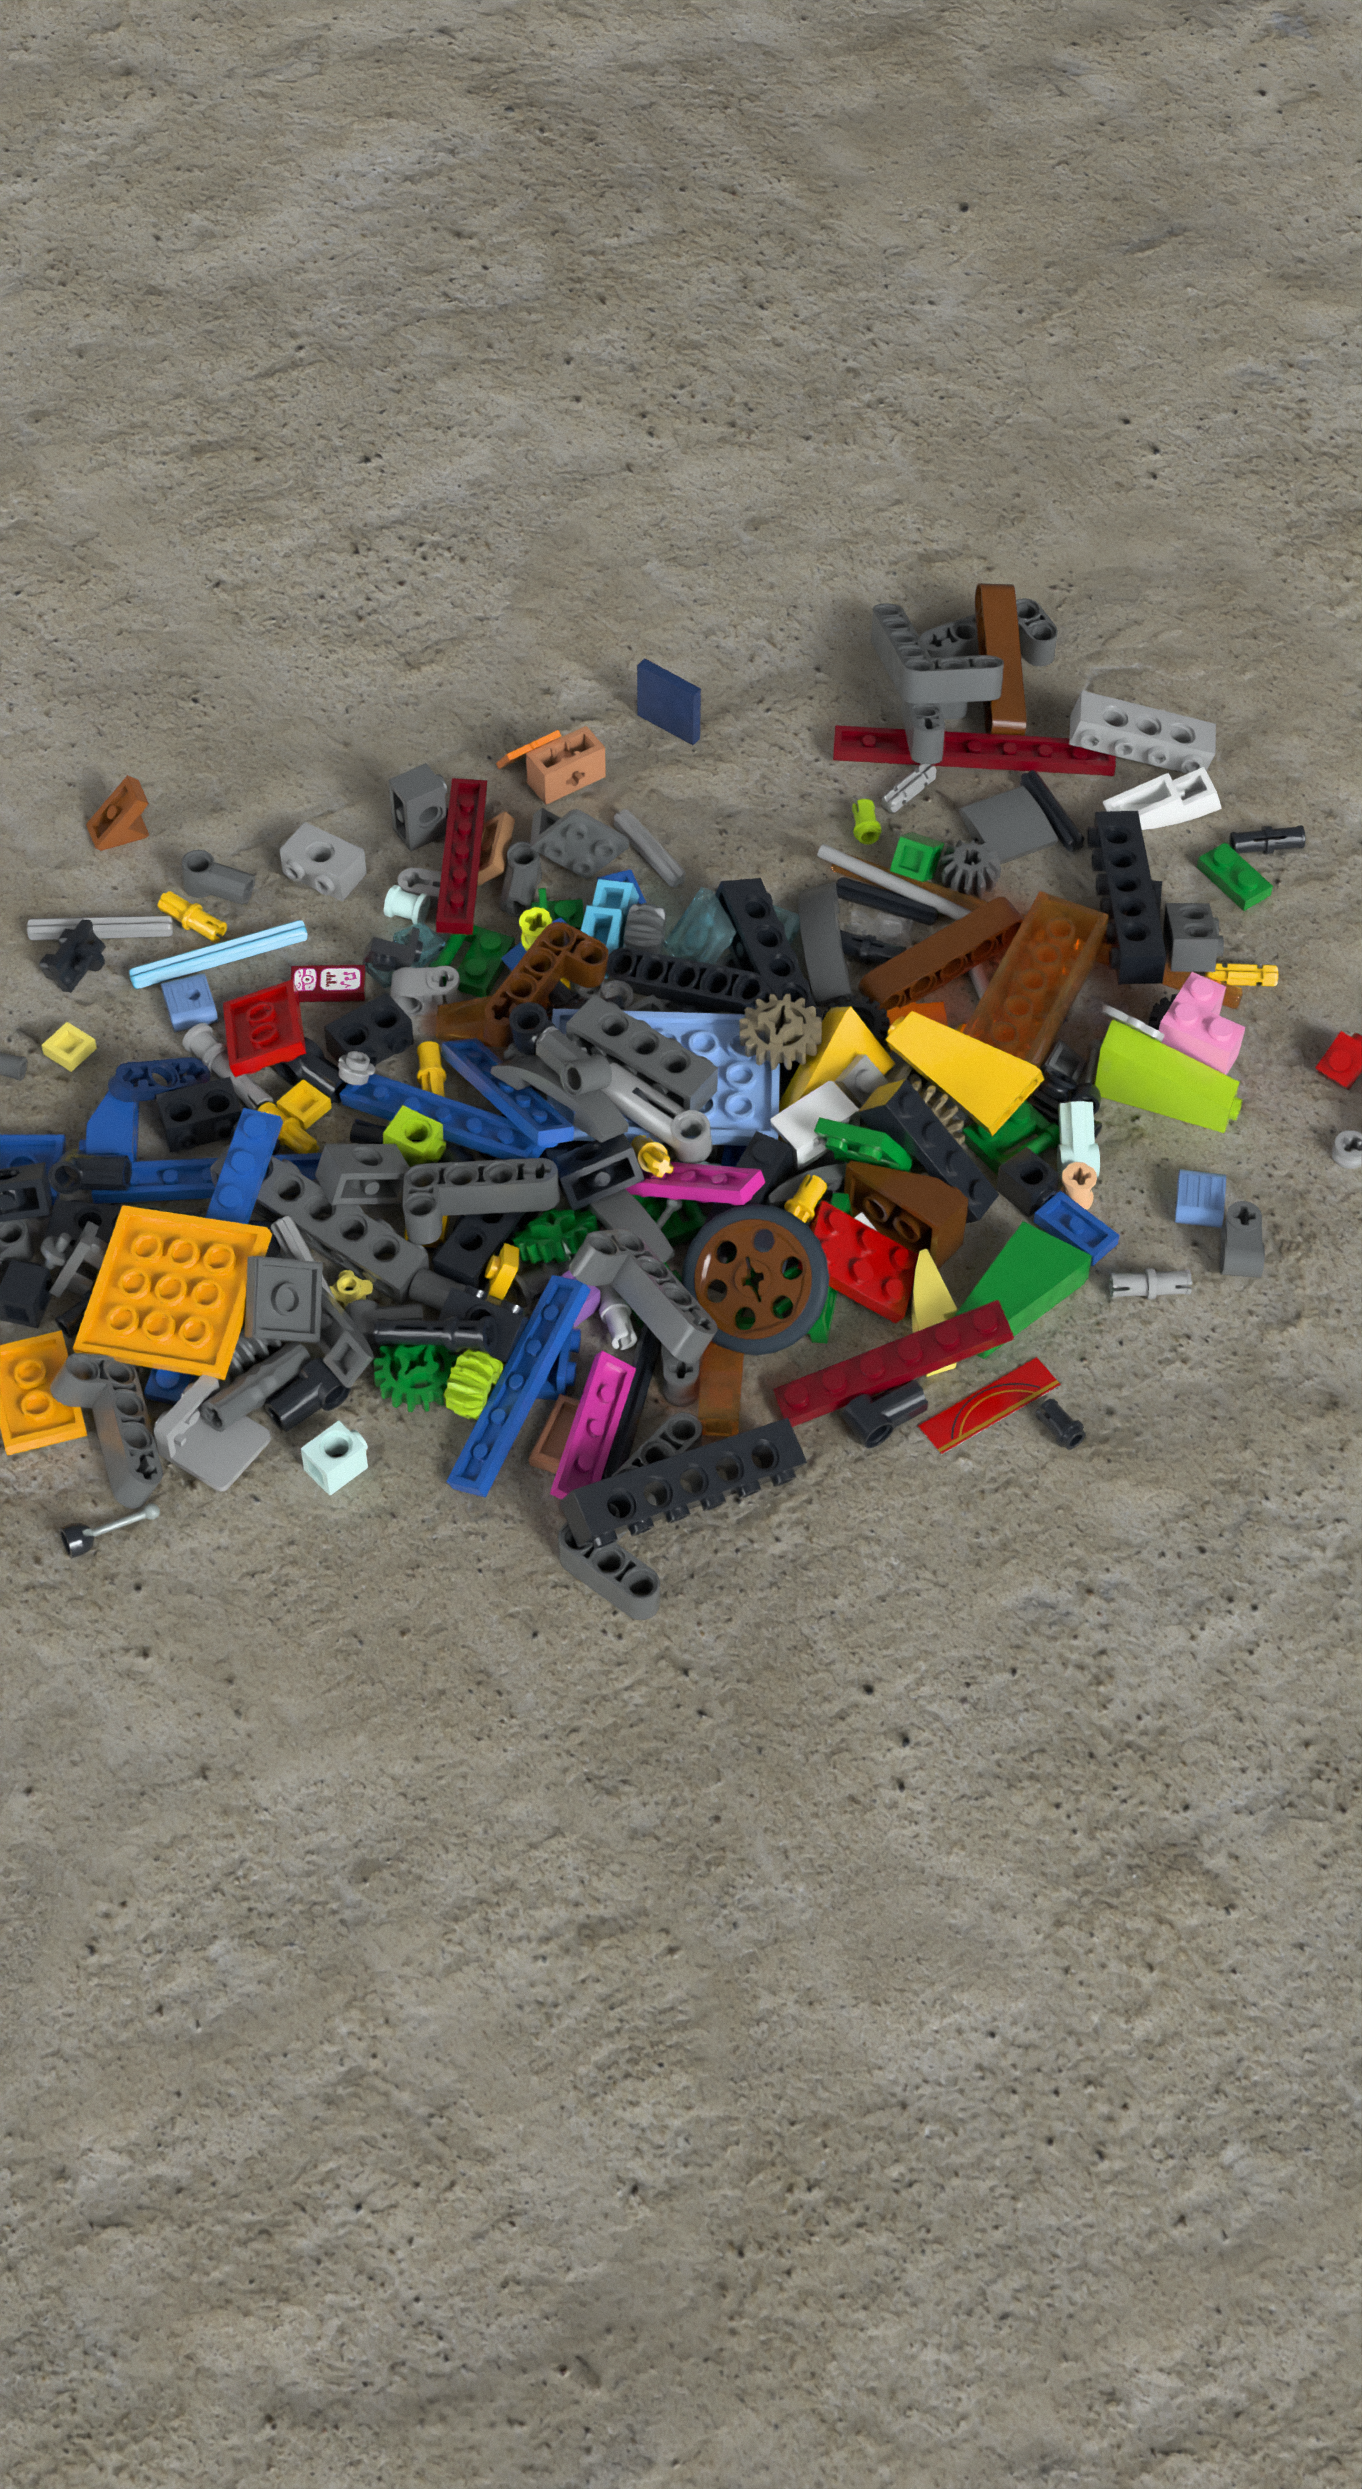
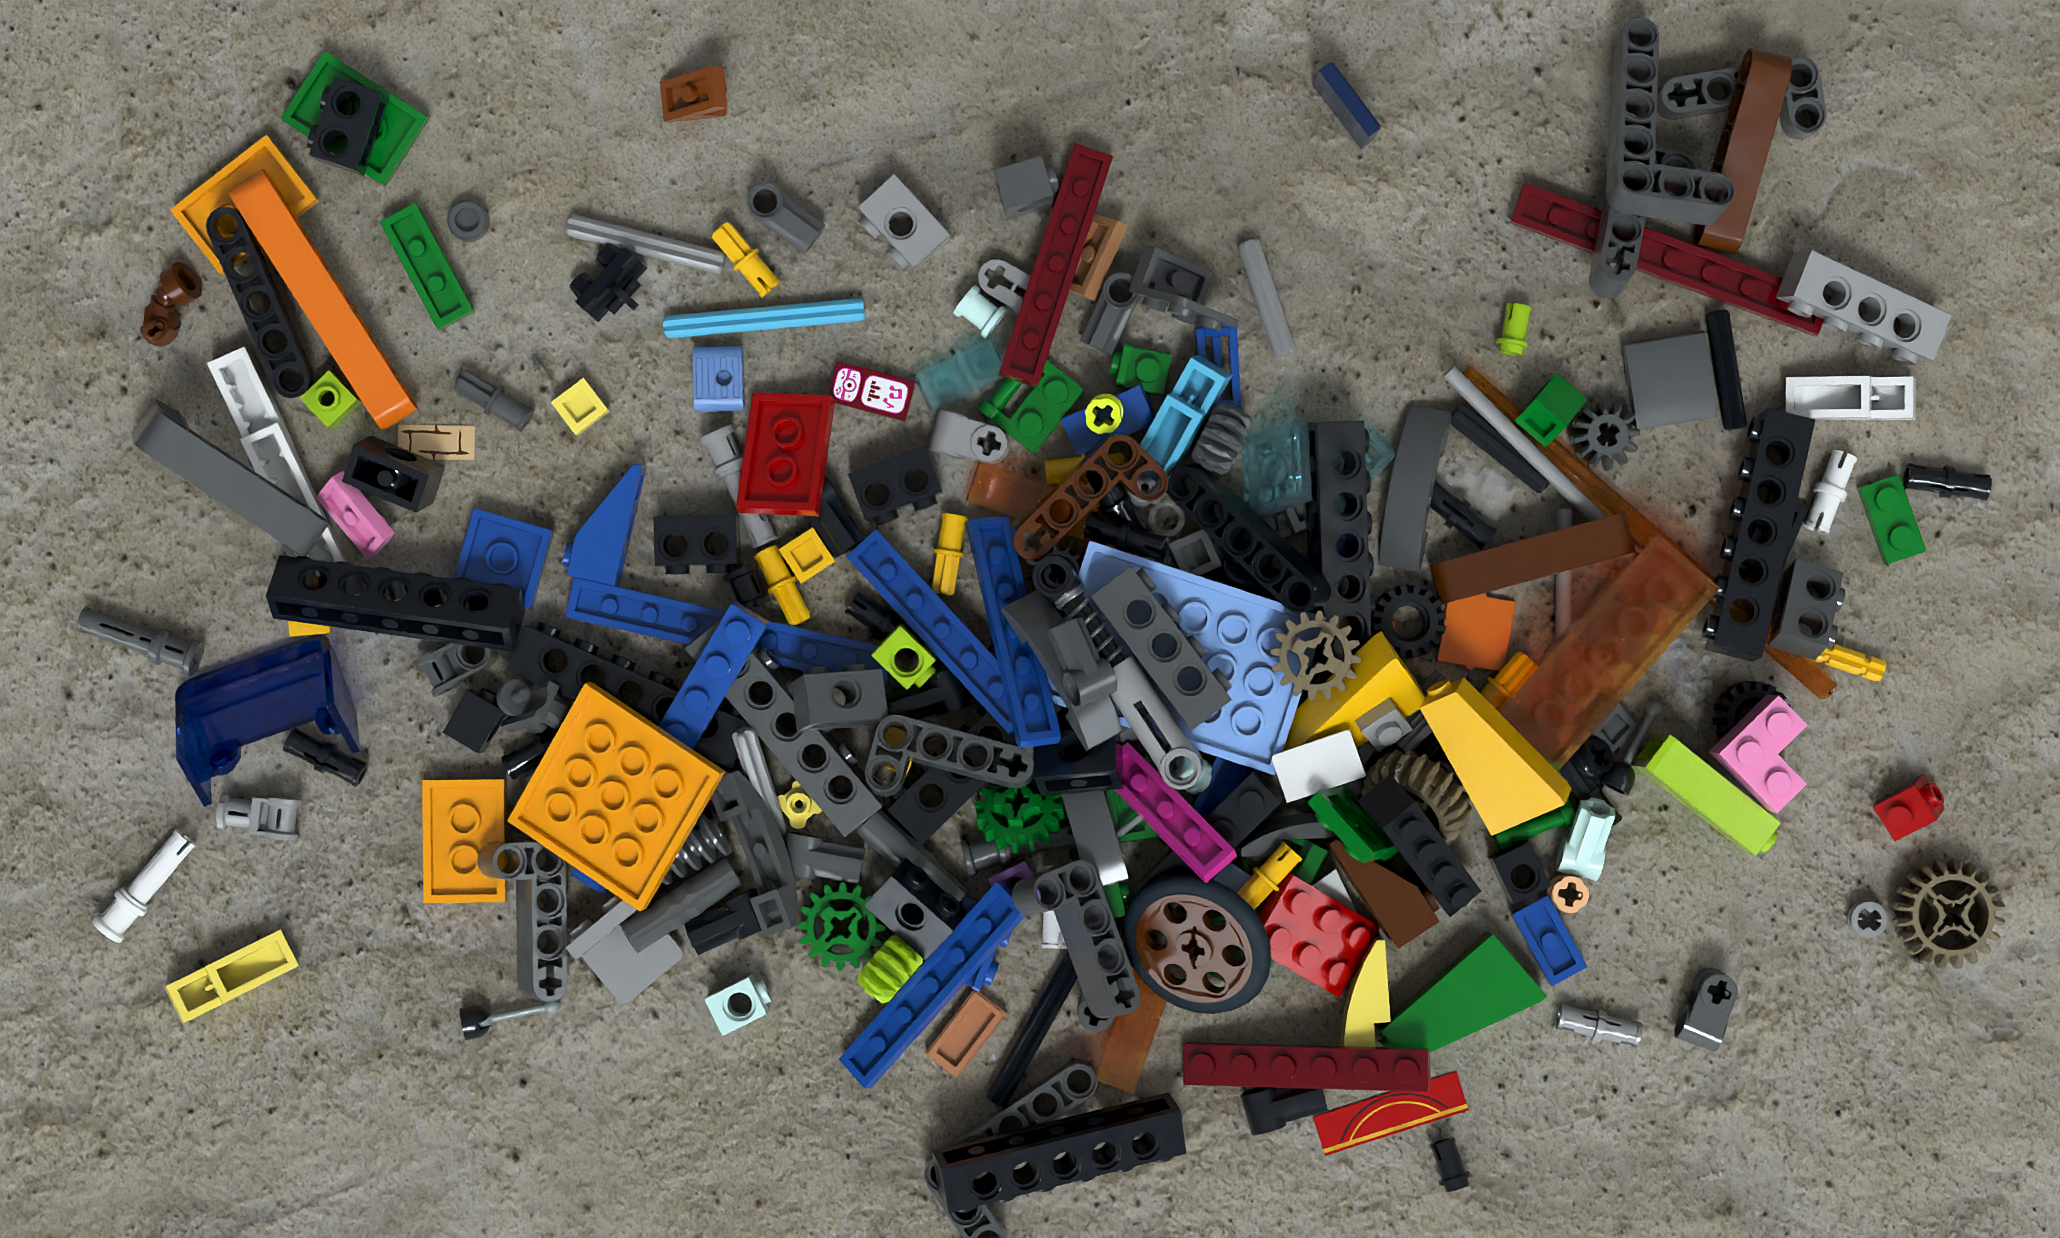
camera: 15 degrees right, 35 degrees up
(92, 1172) = (556, 596): black piece -> none
(146, 1088) = (645, 489): dark blue beam -> none
(283, 1299) = (722, 839): dark grey plate -> none
(355, 1068) = (861, 547): light grey plate -> none
(391, 956) = (941, 399): black bracket -> none
(453, 1333) = (879, 926): black pin -> none
(502, 1270) = (954, 841): yellow plate -> none
(520, 753) = (1169, 130): orange piece -> none
(565, 765) = (1205, 164): nougat brick -> none
(594, 1424) = (993, 1050): dark pink plate -> none
(651, 1156) = (1136, 770): yellow axle -> none
(908, 787) = (1569, 296): light grey axle -> none
(1131, 1022) = (1688, 745): light grey piece -> none
(1174, 866) = (1830, 492): none -> white pin
(1200, 1198) = (1688, 936): medium blue piece -> none

